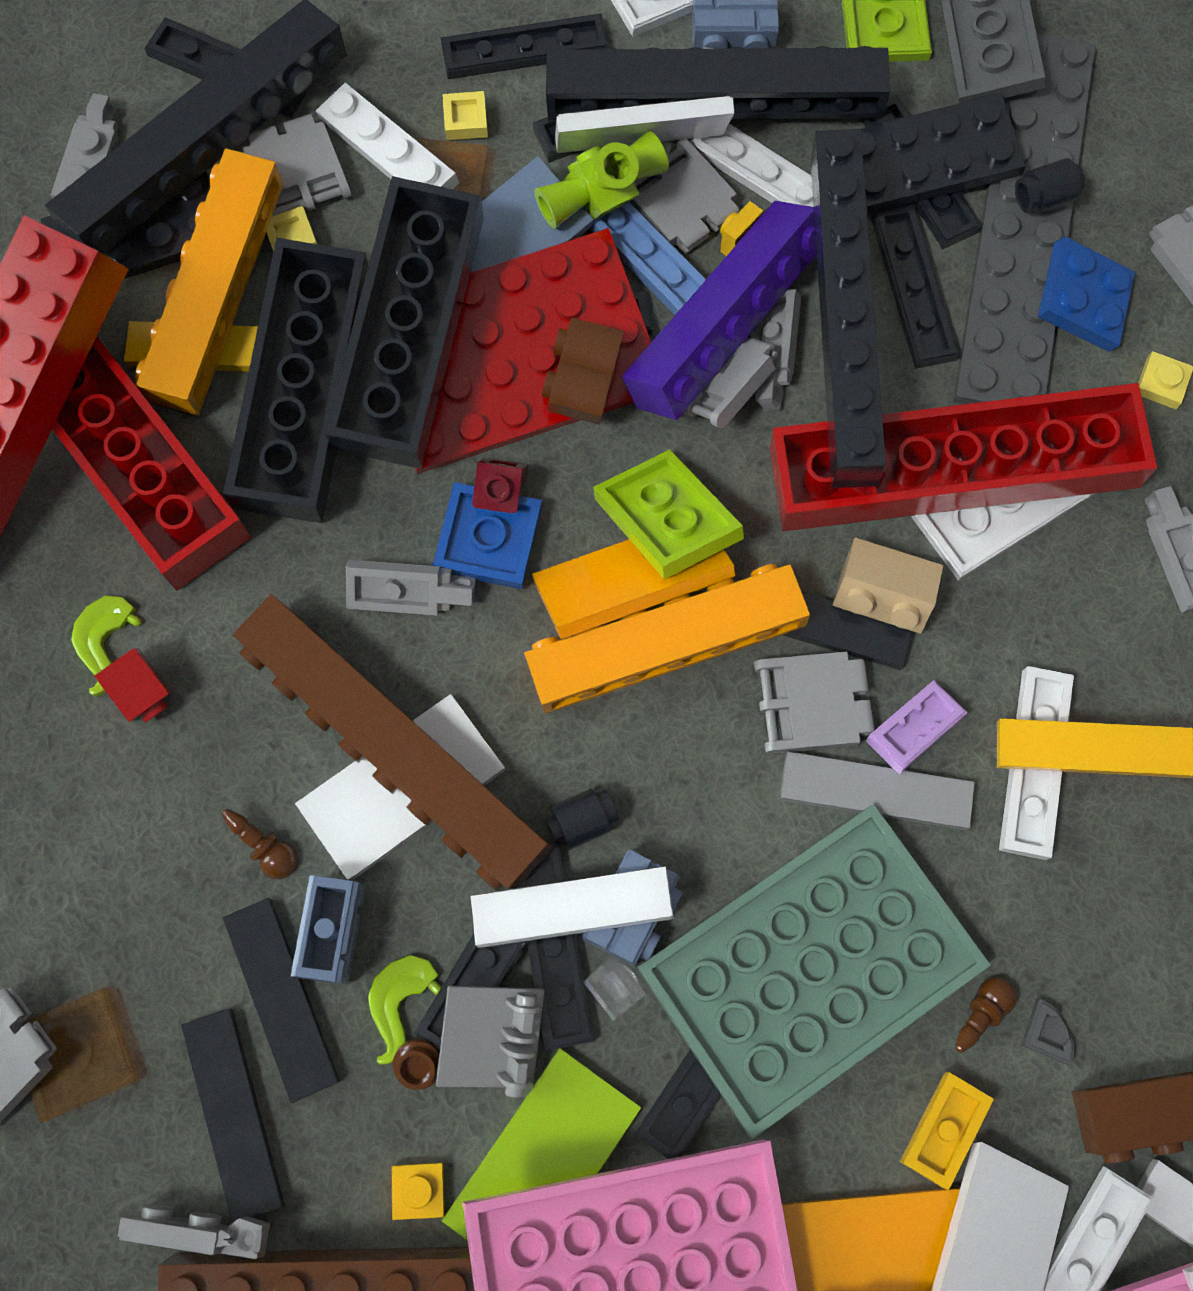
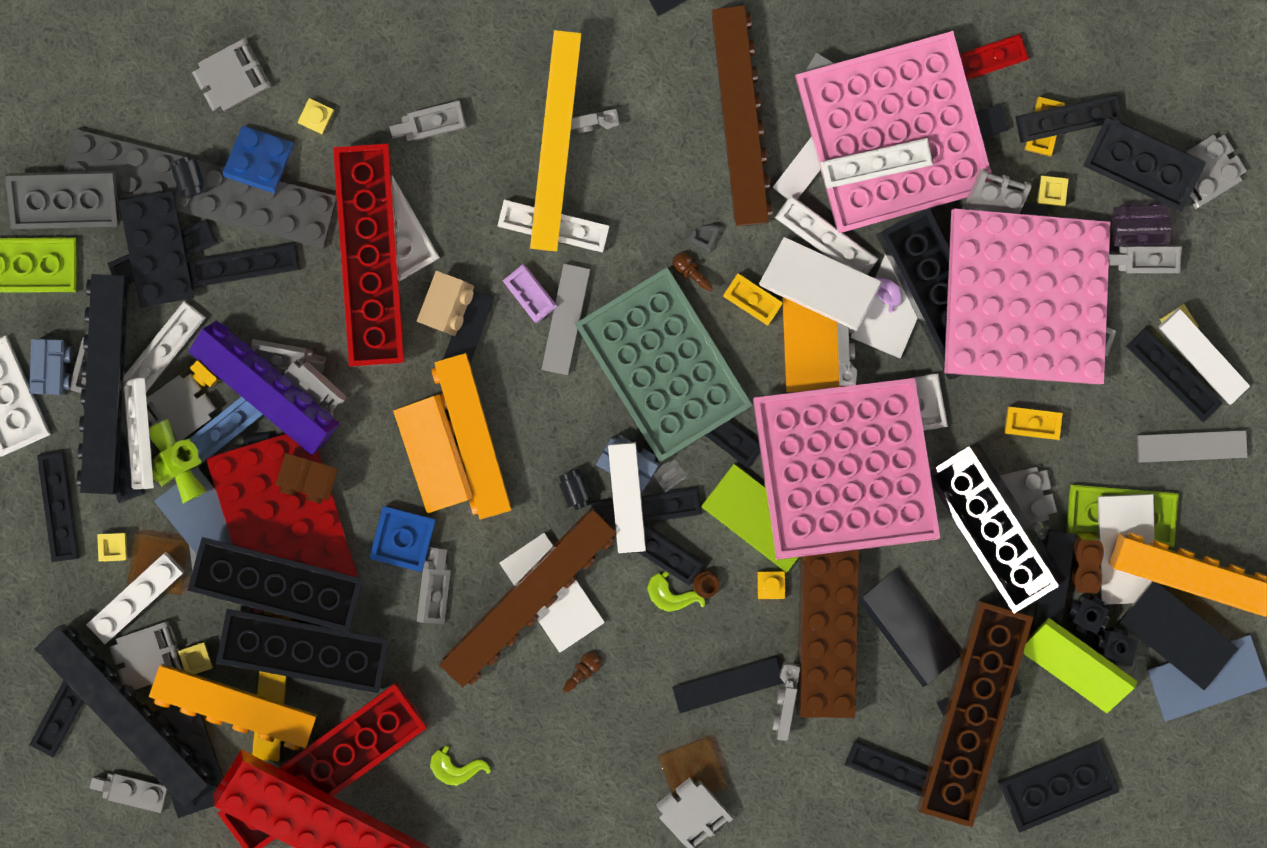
camera: 80 degrees left, 15 degrees up
(134, 686) = (488, 745): red brick -> none
(281, 1000) = (667, 659): black tile -> none
(328, 930) = (633, 631): sand blue brick -> none
(490, 1038) = (694, 544): light grey hinge -> none
(498, 485) = (371, 531): dark red bracket -> none
(668, 514) = (396, 431): lime plate -> none
(814, 702) = (512, 351): light grey plate -> none
(847, 310) = (277, 319): black brick -> none

